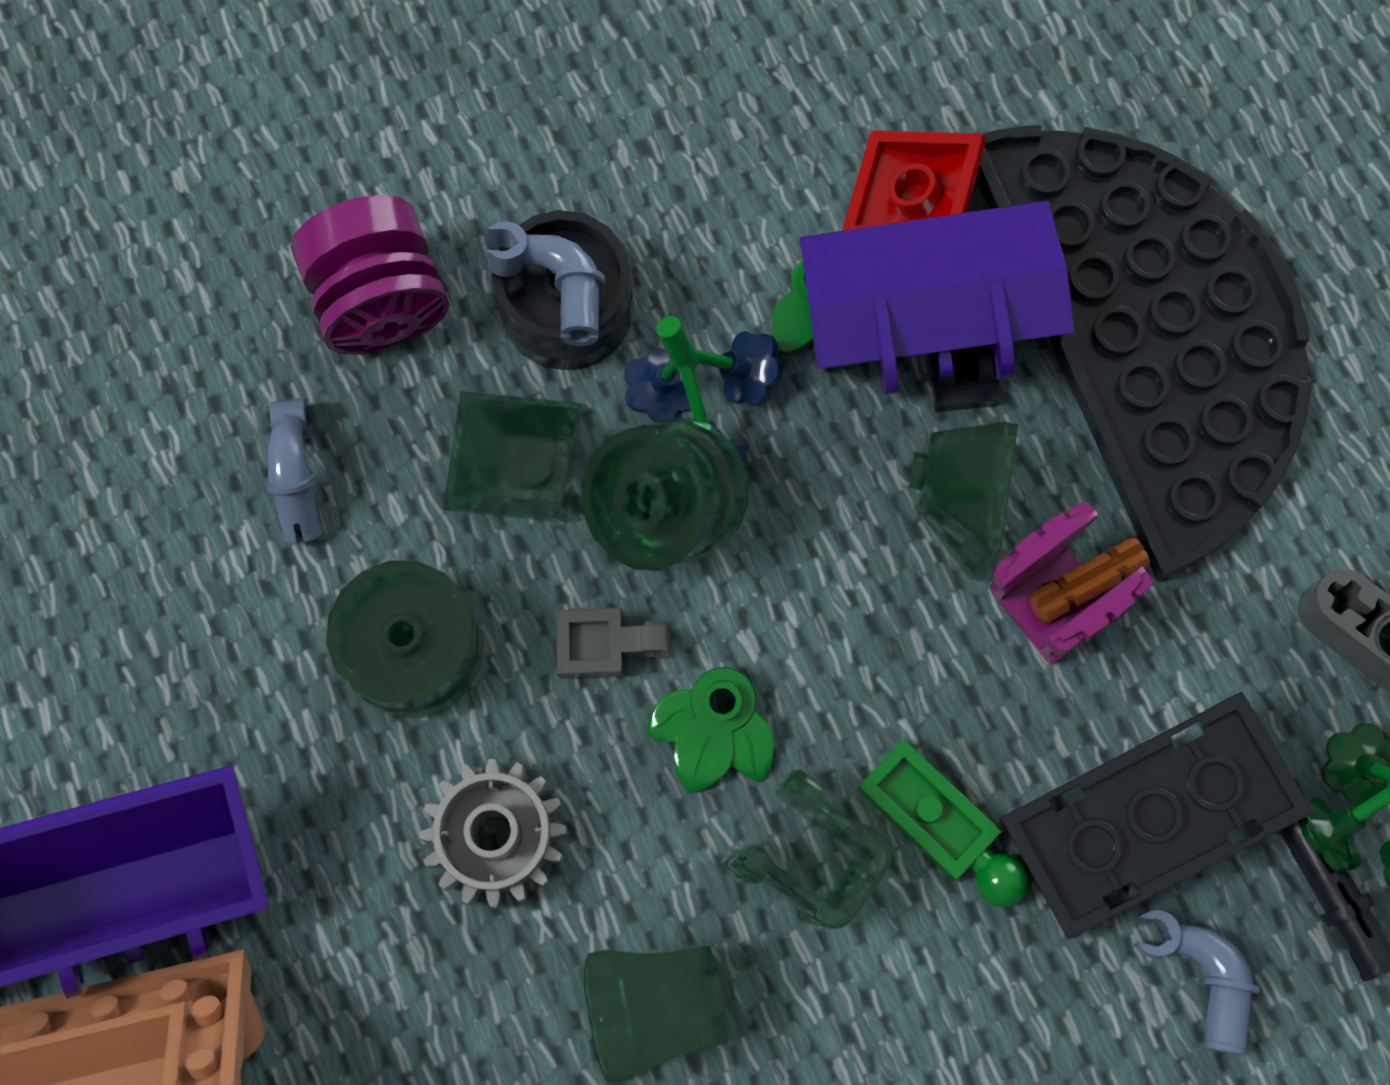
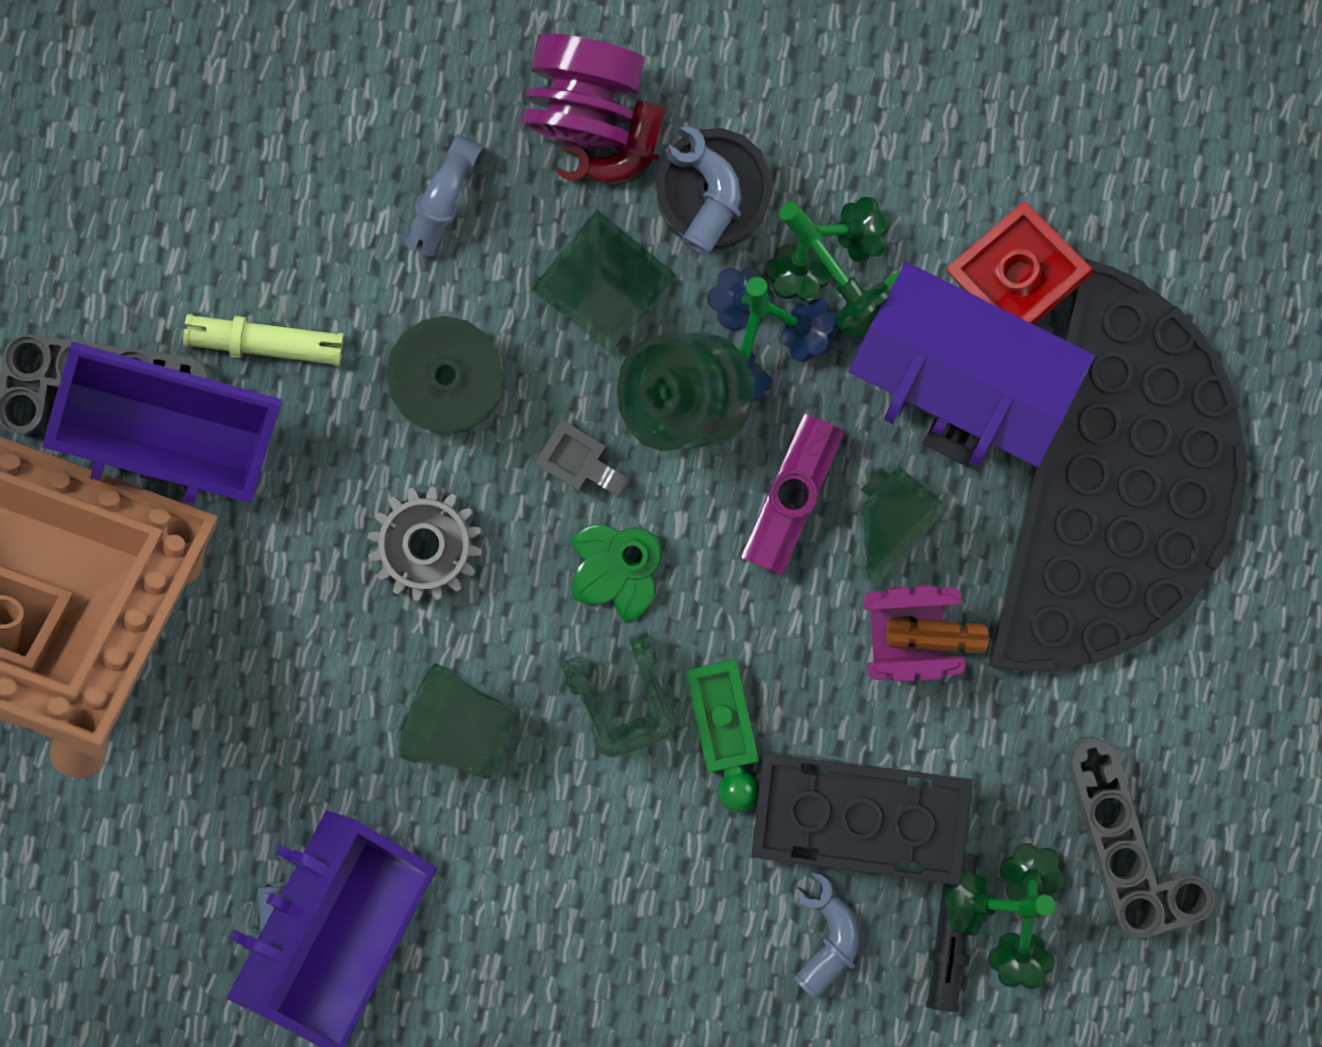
camera: 30 degrees right, 15 degrees up
(165, 743) = (262, 340): none -> yellowish green pin
(463, 319) = (629, 161): none -> dark red piece
(736, 254) = (800, 268): none -> dark green plant
(852, 572) = (808, 462): none -> magenta piece

